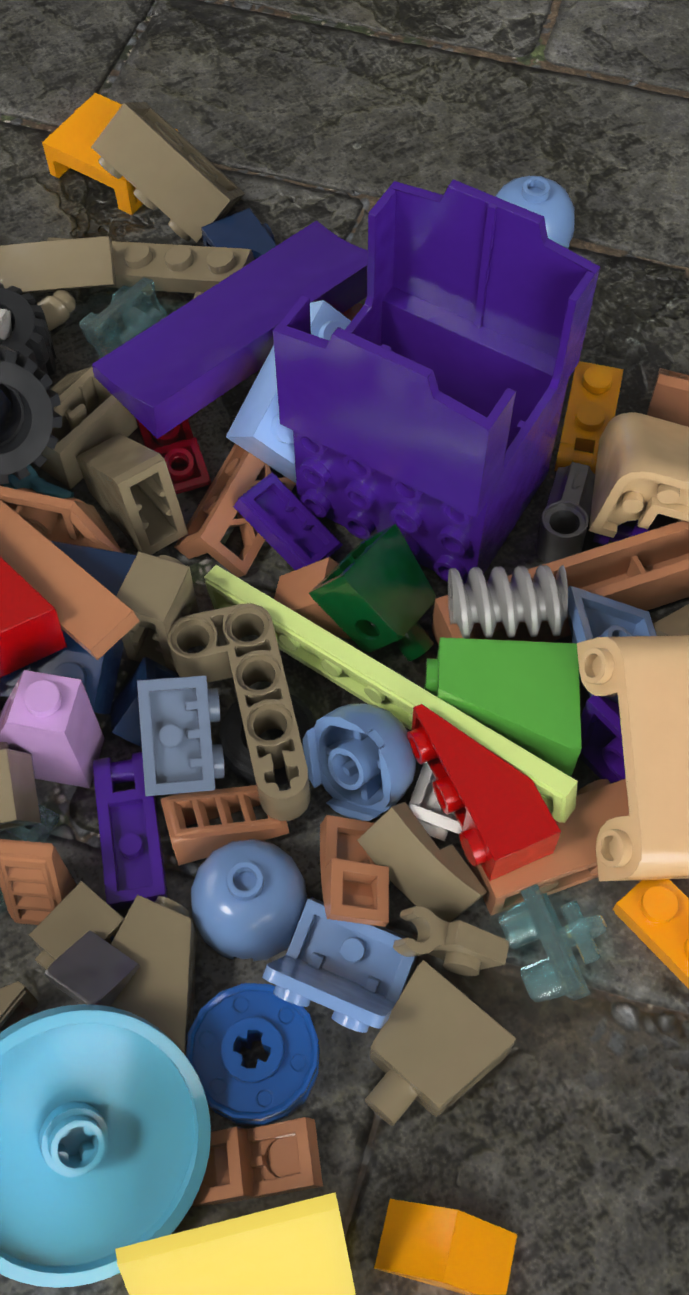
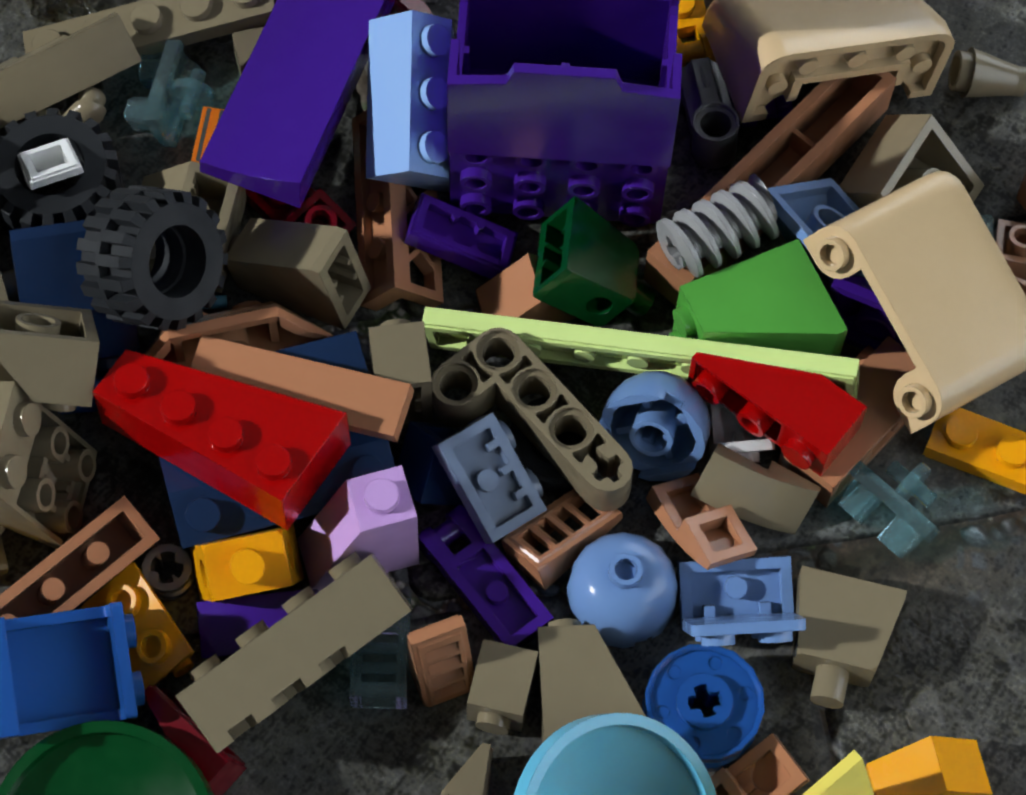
camera: 30 degrees left, 5 degrees up
(92, 971) = (543, 703): flat silver slope -> none
(457, 943) = (821, 541): dark tan plate -> none

